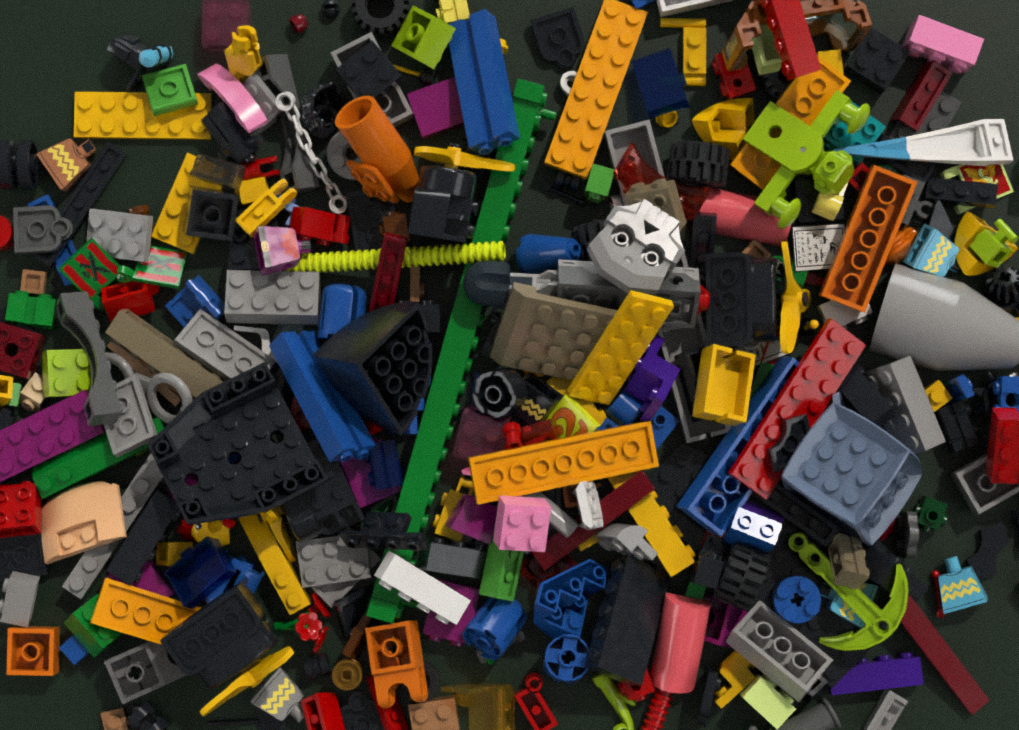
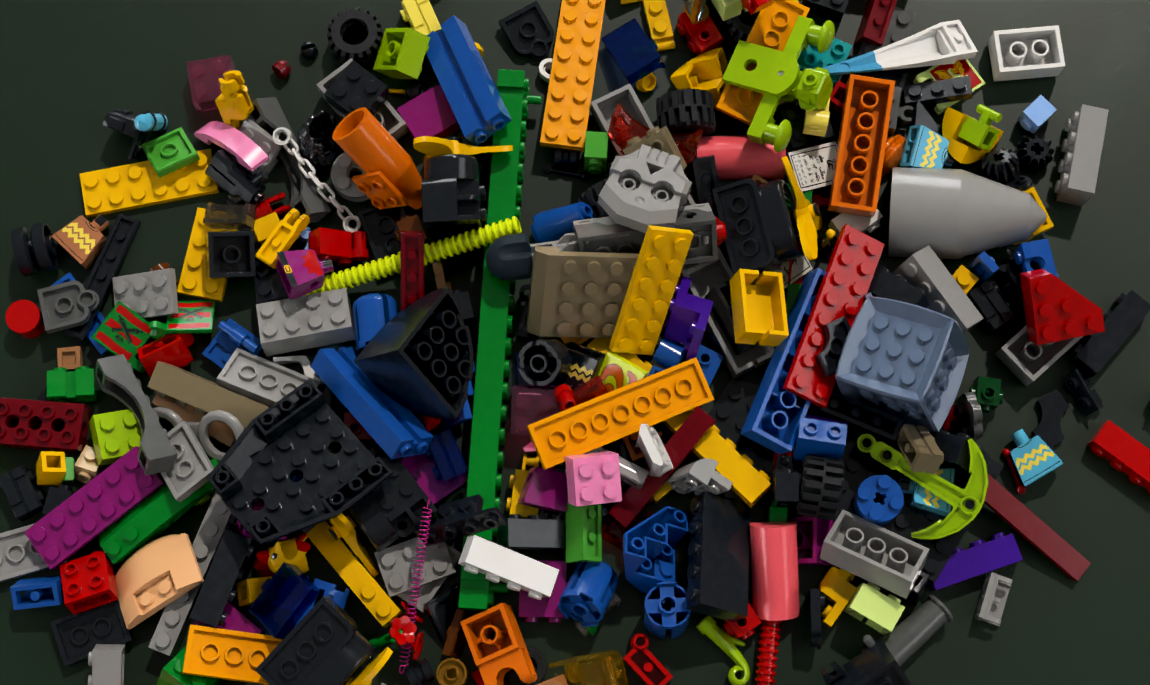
camera: 10 degrees left, 10 degrees down
(327, 581) = (425, 530): none -> dark pink piece

